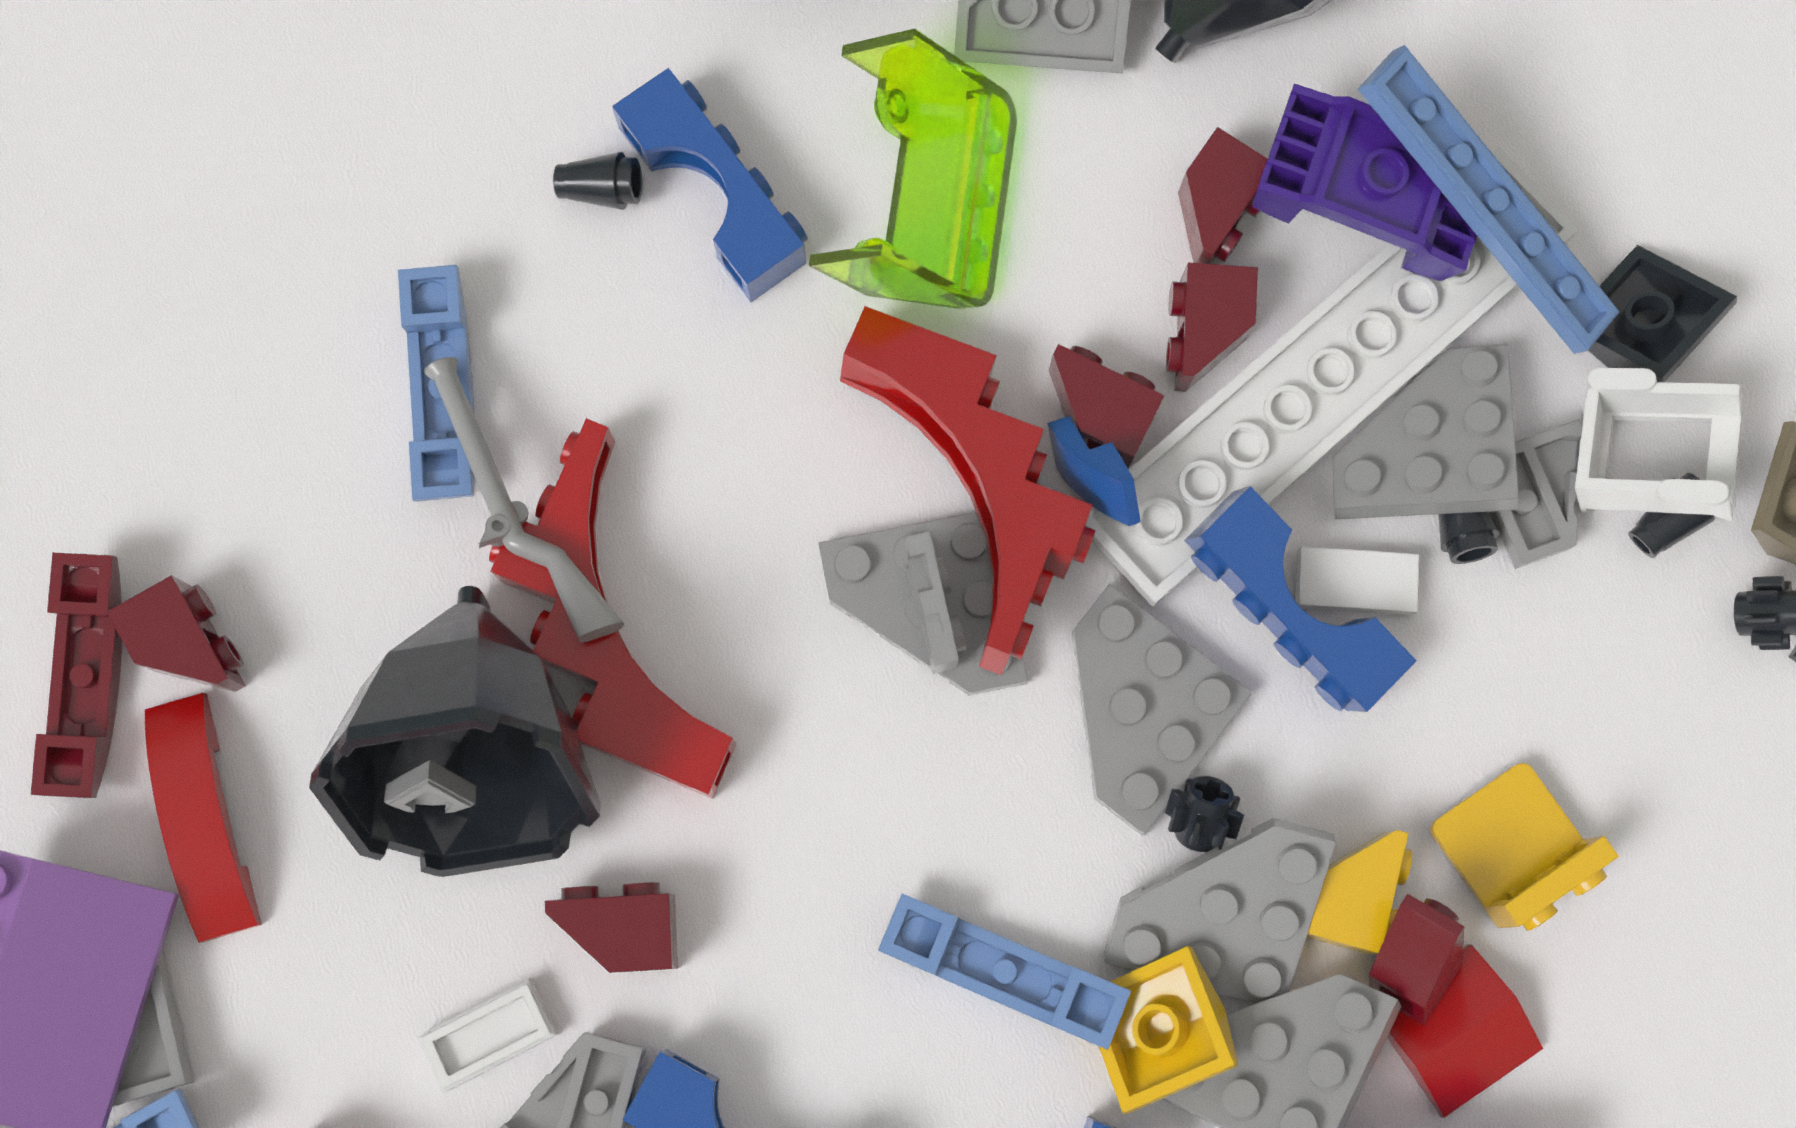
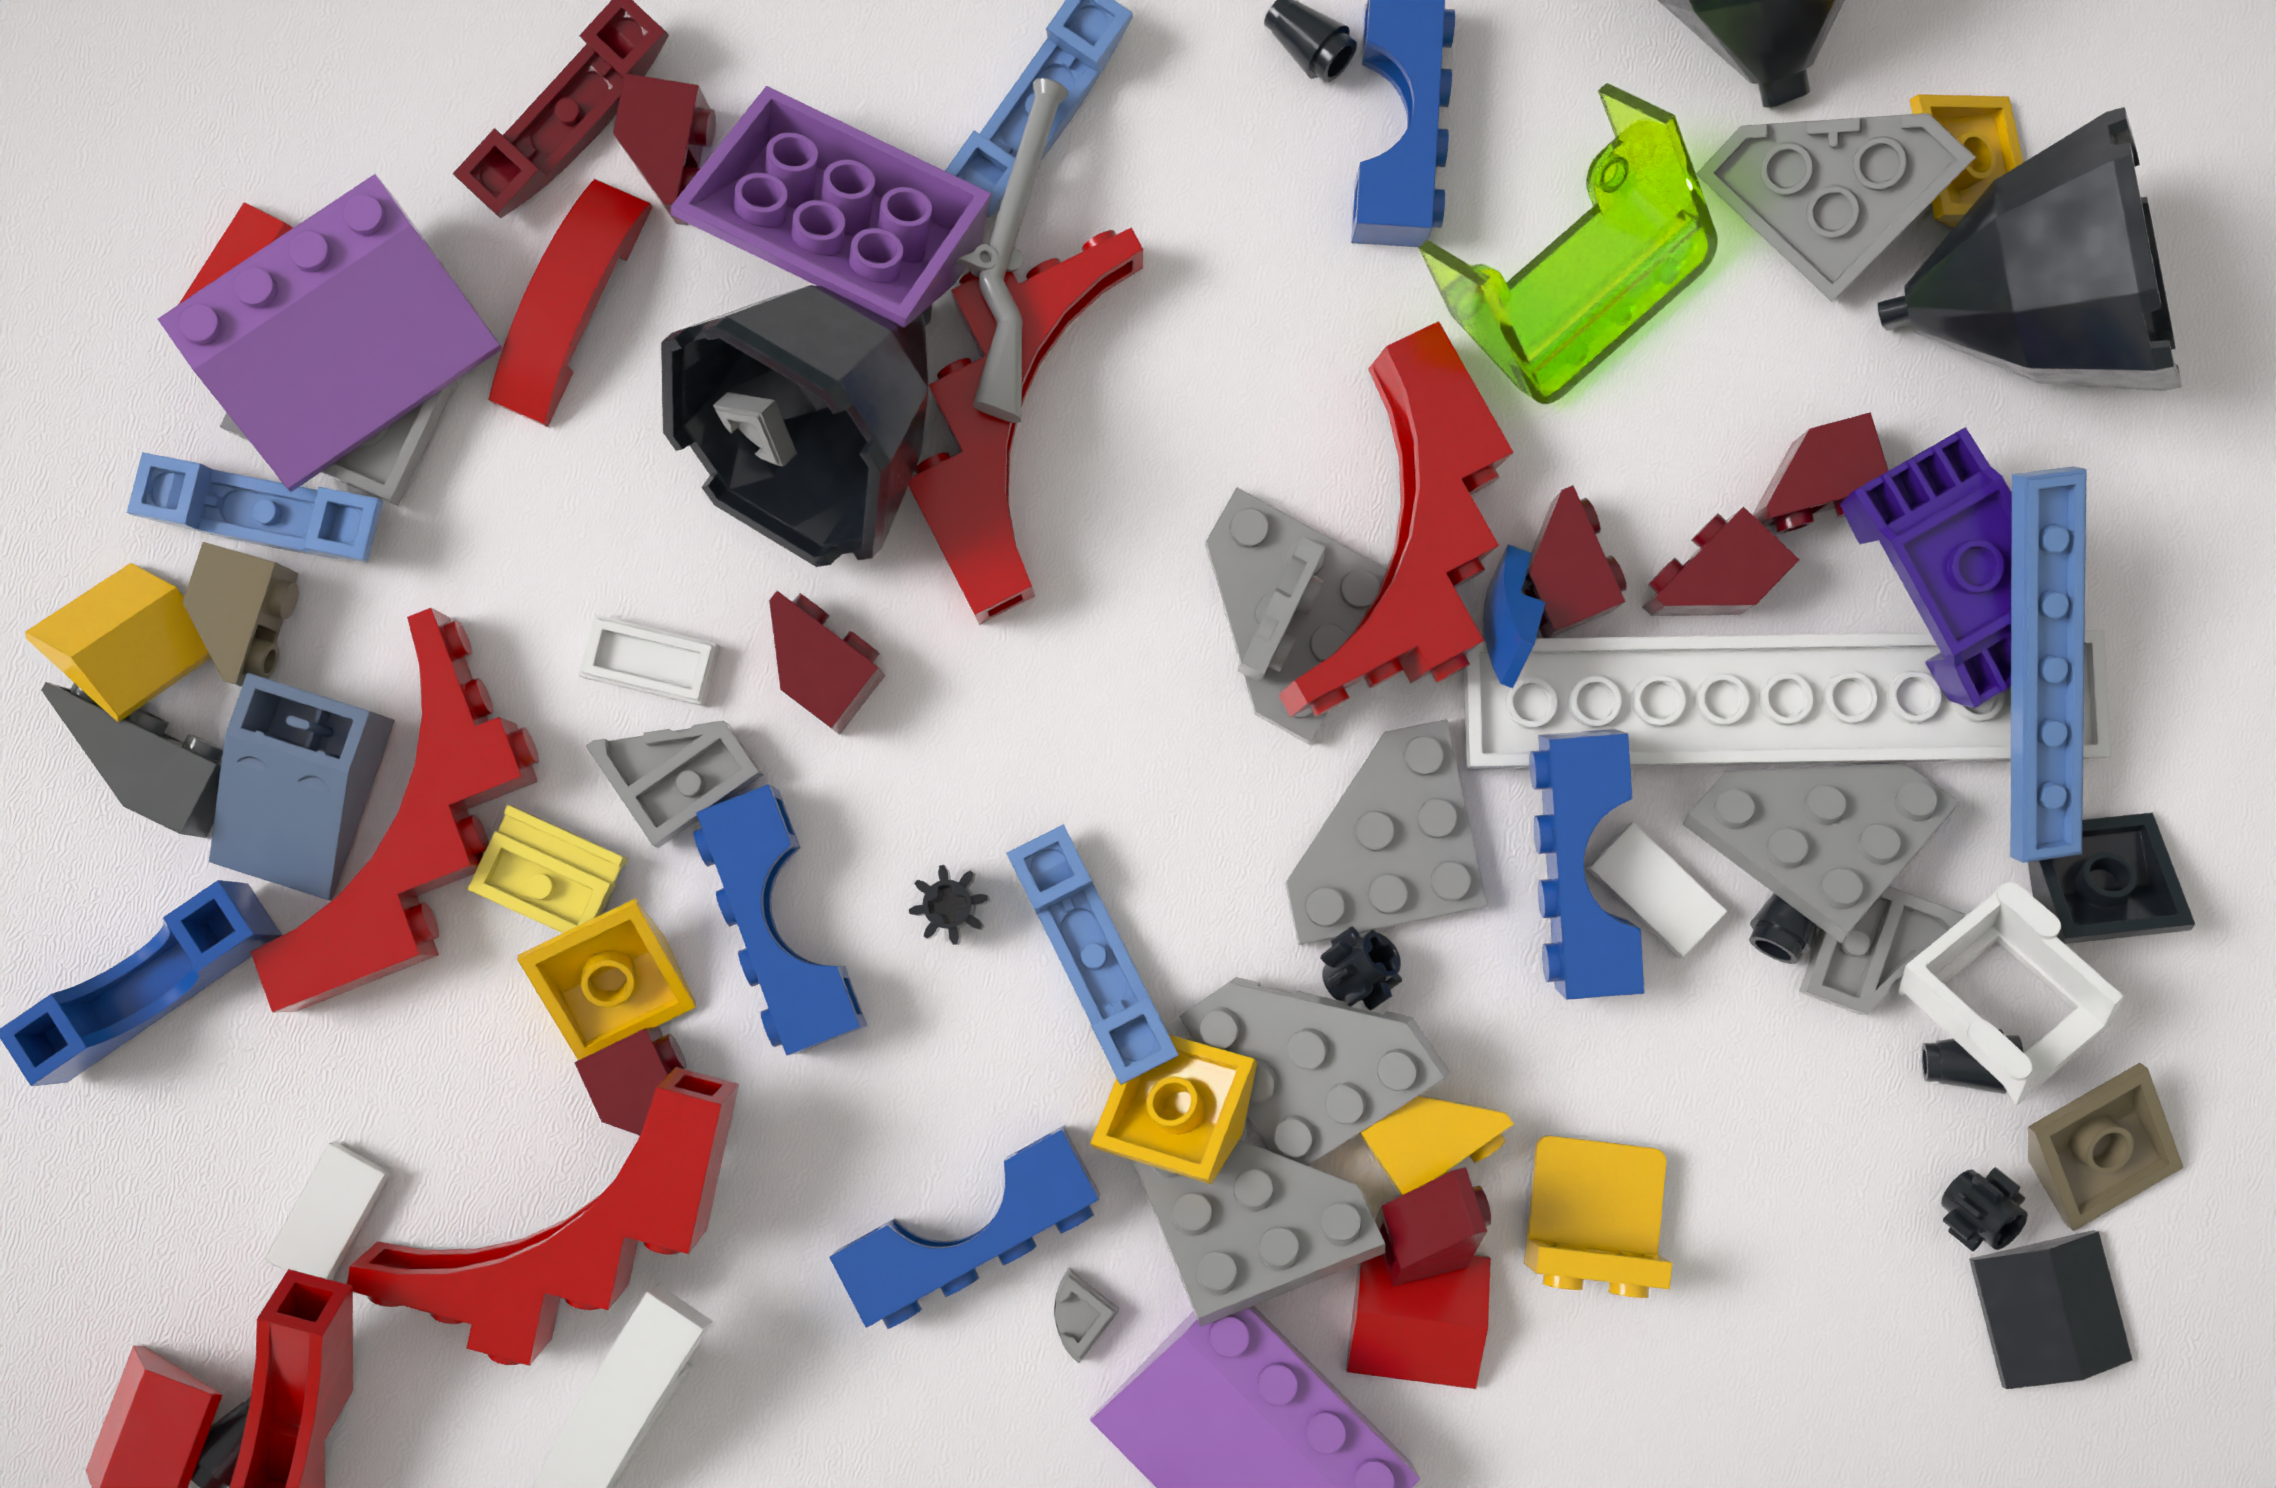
camera: 45 degrees right, 5 degrees up
(354, 581) = (836, 207): none -> medium lavender slope
(870, 1043) = (934, 893): none -> black gear

